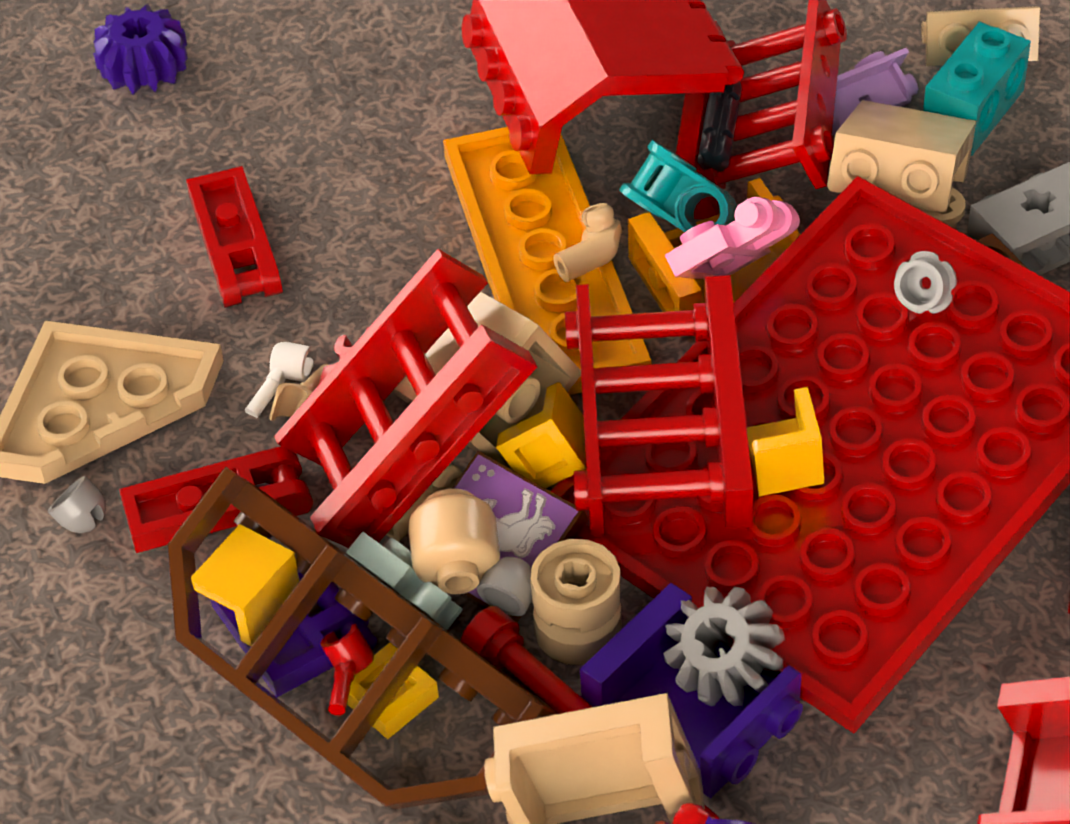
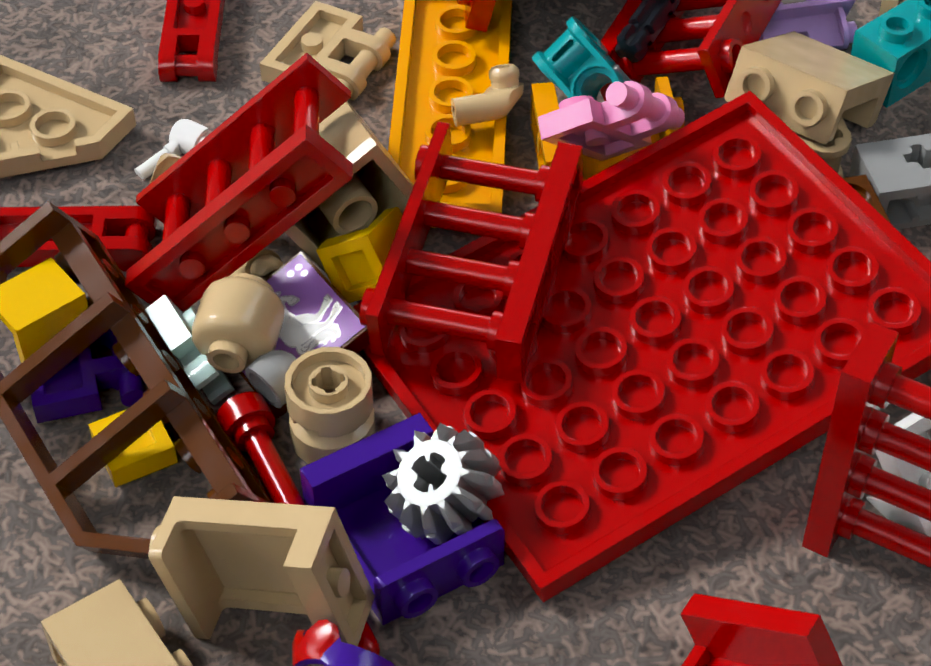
camera: 15 degrees right, 0 degrees up
(348, 658) = (105, 401): red hand -> none
(376, 229) = (327, 36): none -> tan plate
(789, 451) = (575, 321): yellow panel -> none
(909, 283) = (753, 194): light grey plate -> none

